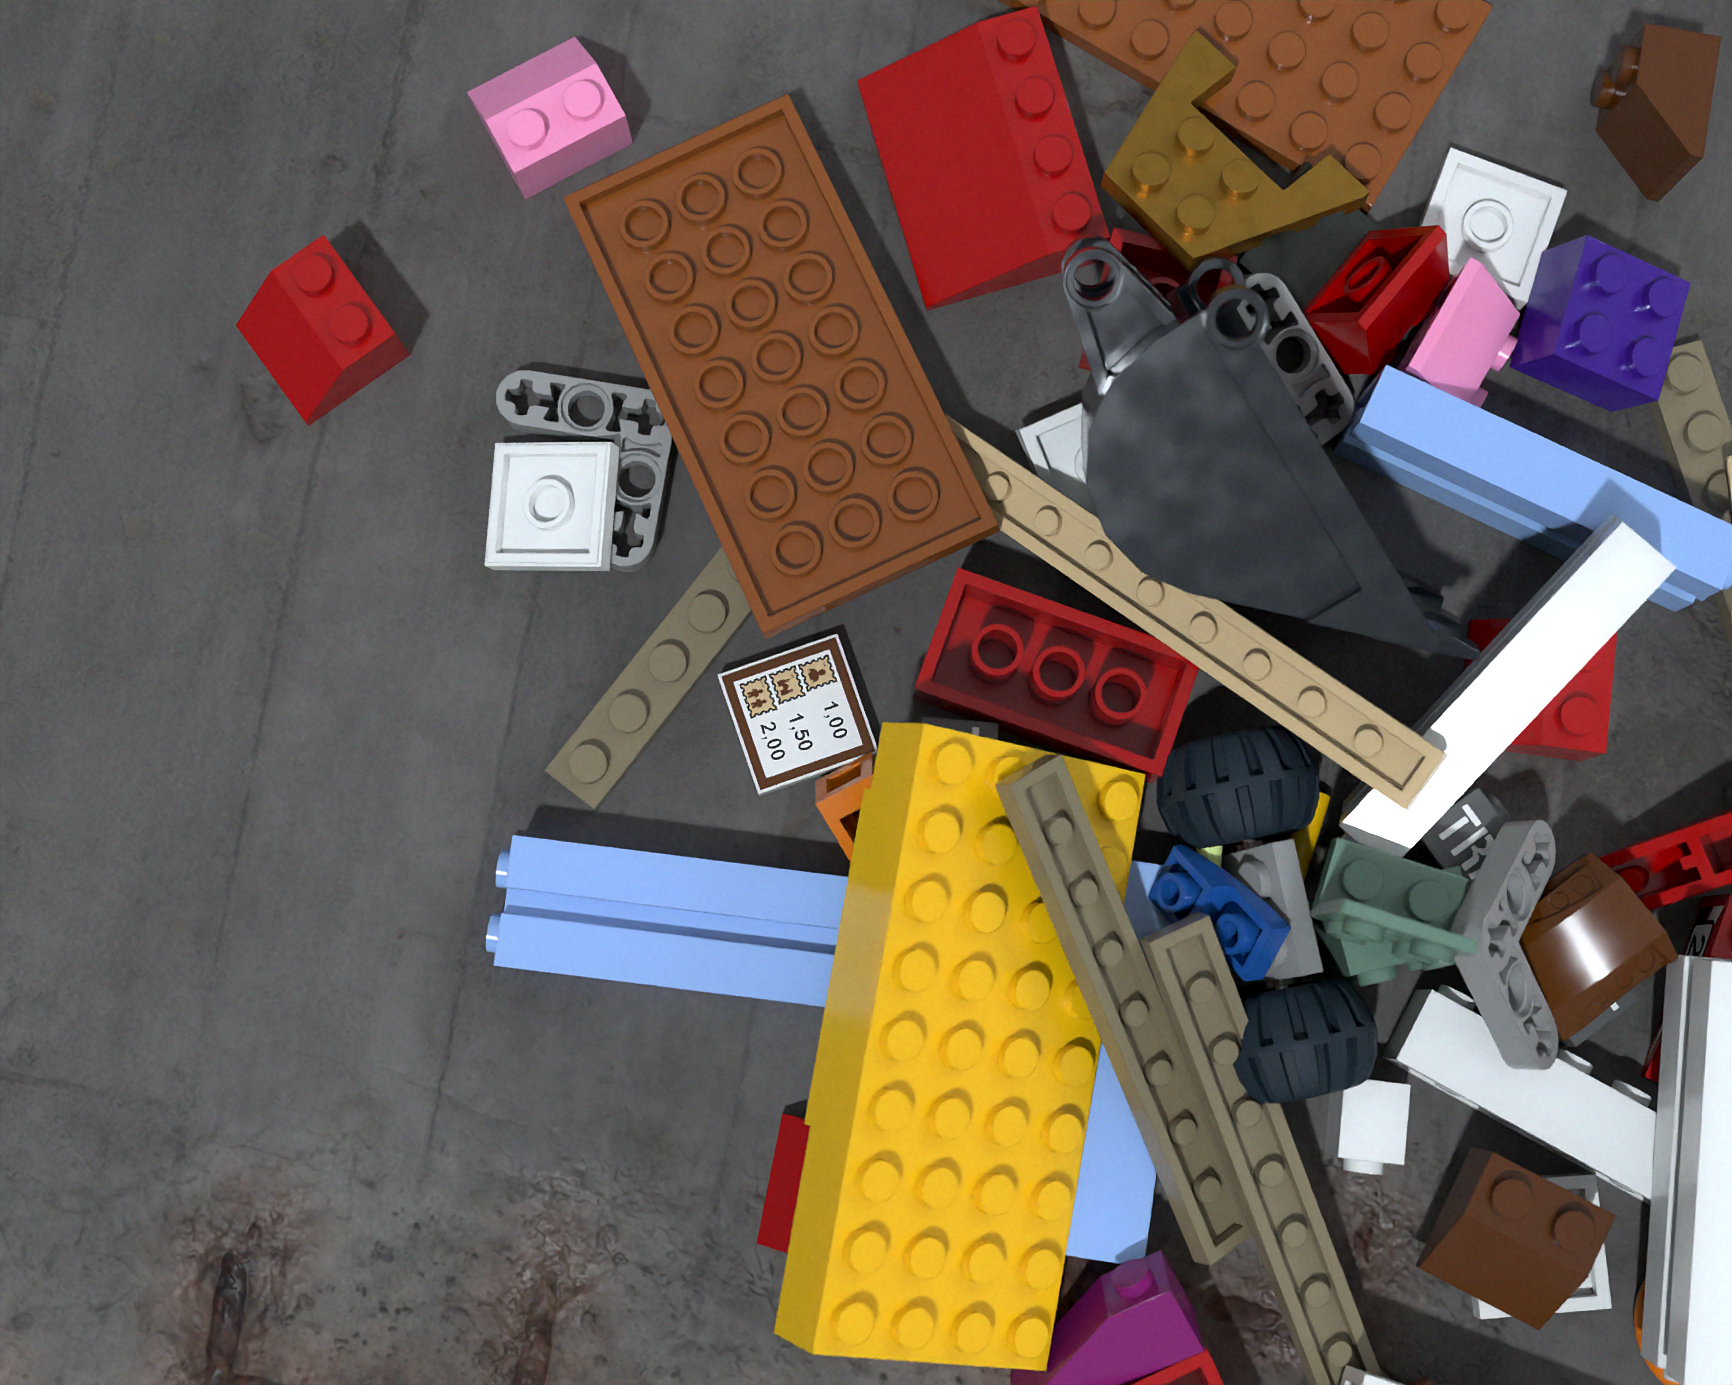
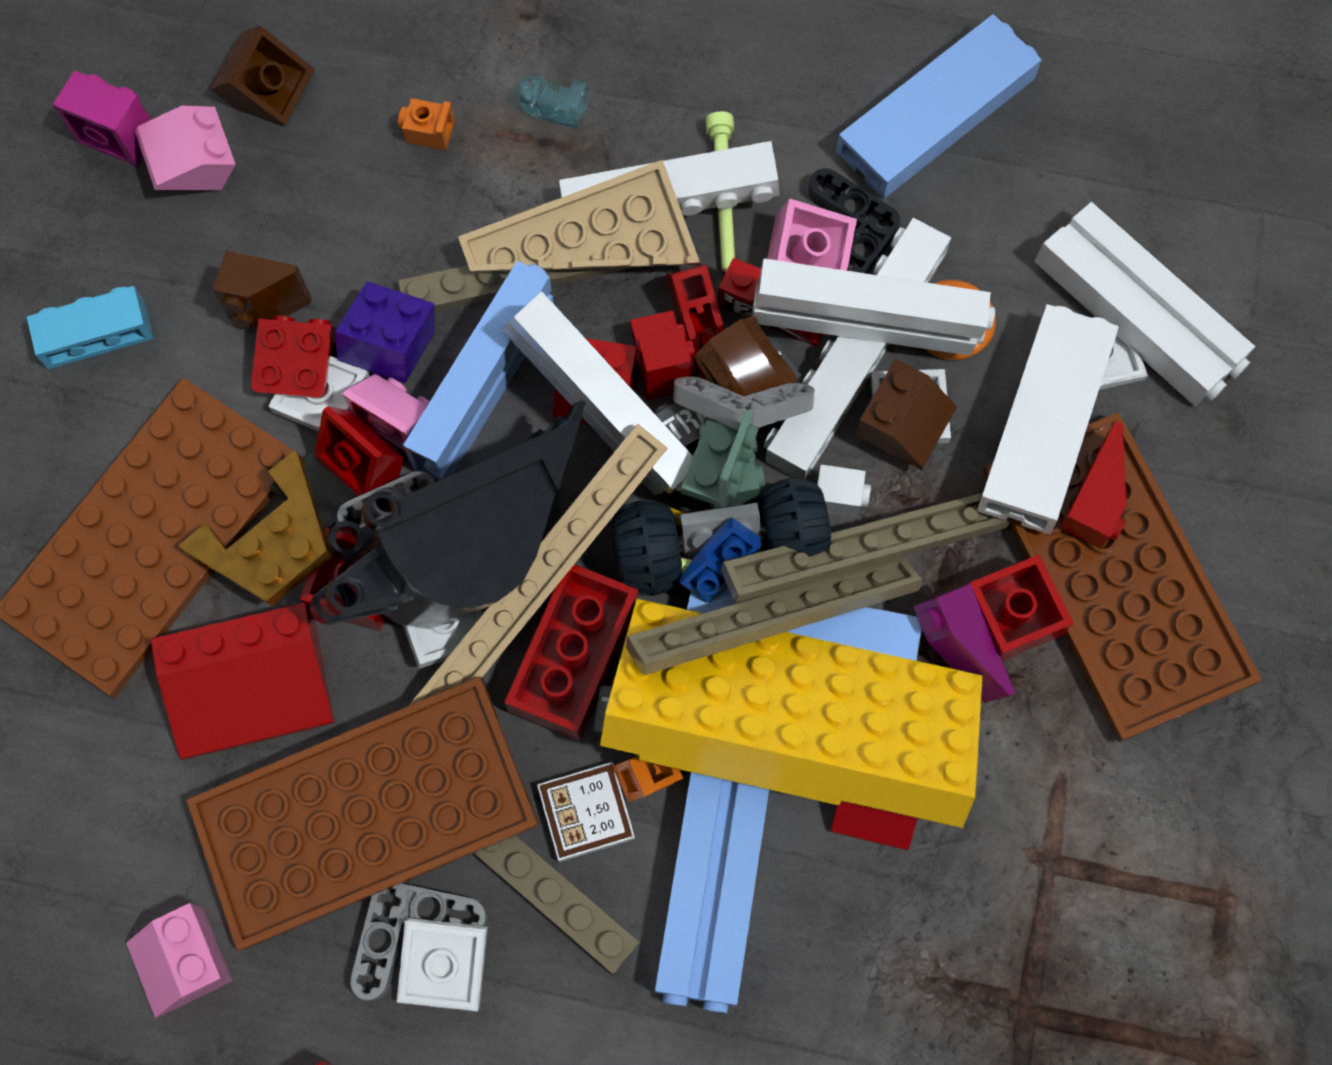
camera: 85 degrees left, 10 degrees down
(1541, 175) = (292, 357): none -> red bracket
(1603, 799) = (662, 352): none -> red brick

